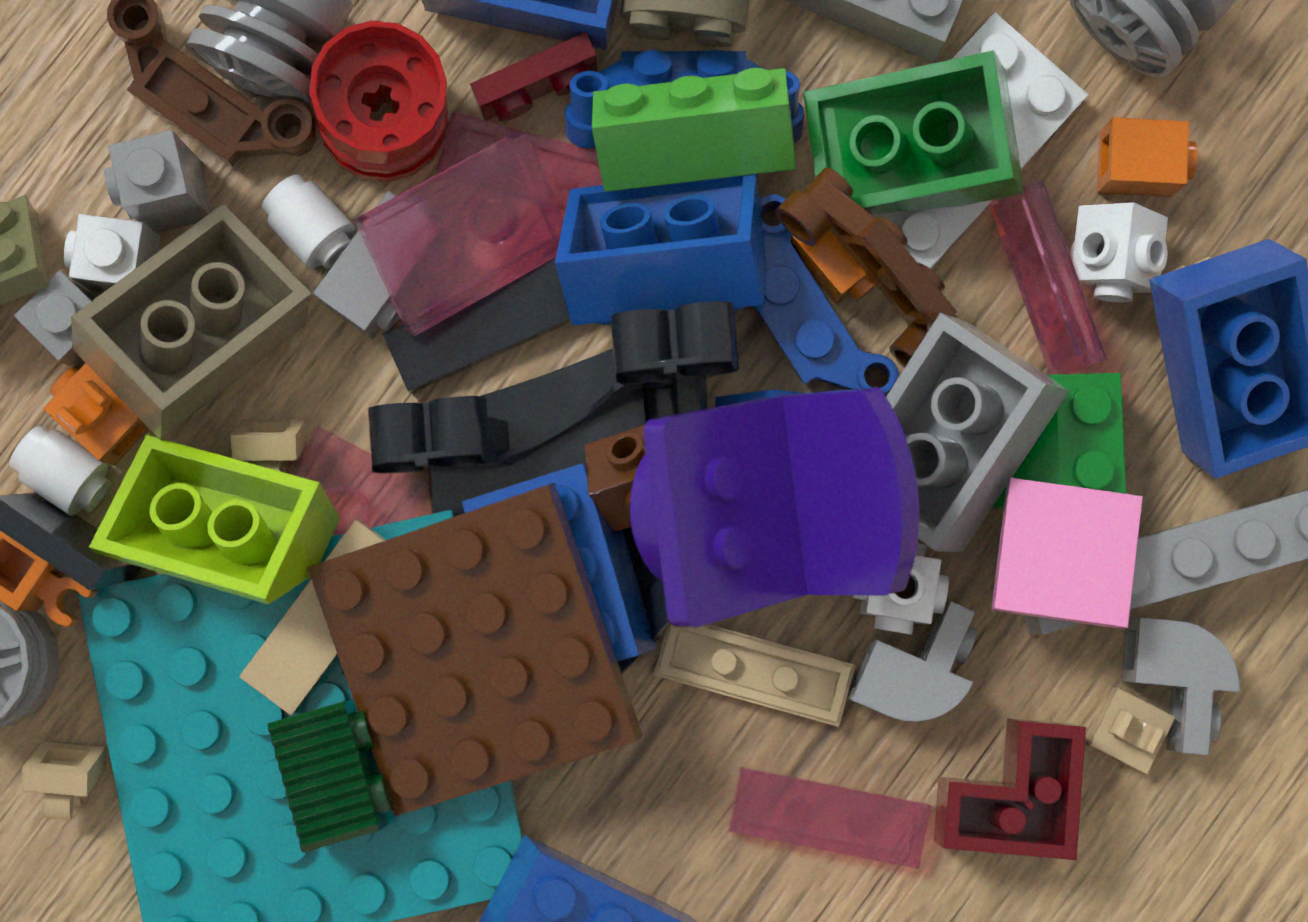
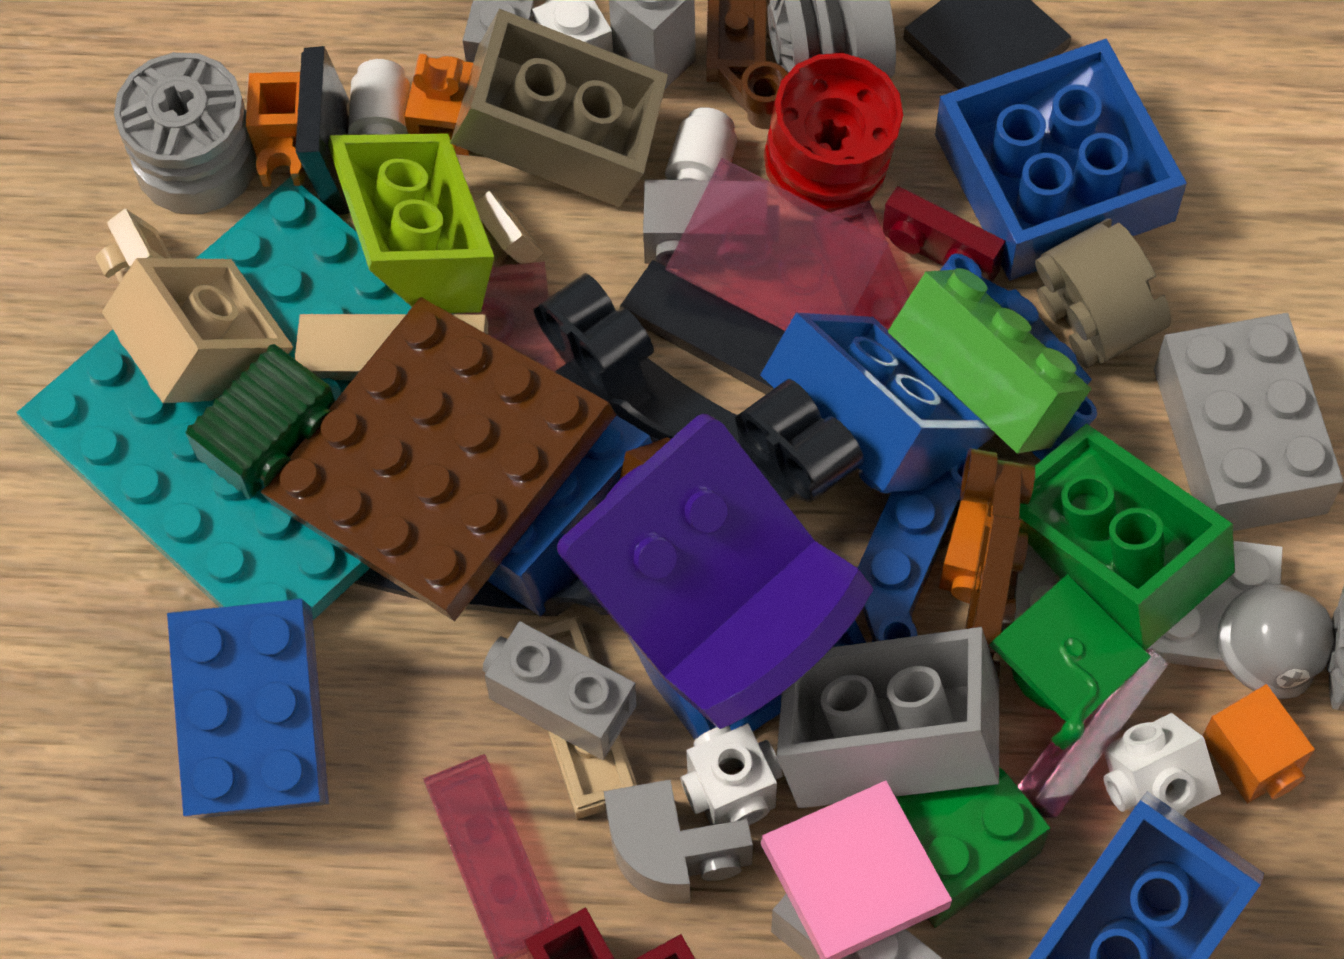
camera: 60 degrees right, 20 degrees down
(191, 777) = (191, 325): none -> tan slope
(738, 678) = (559, 689): none -> light grey brick
(996, 254) = (1068, 656): none -> green hat
(1074, 78) = (1275, 639): none -> light grey helmet

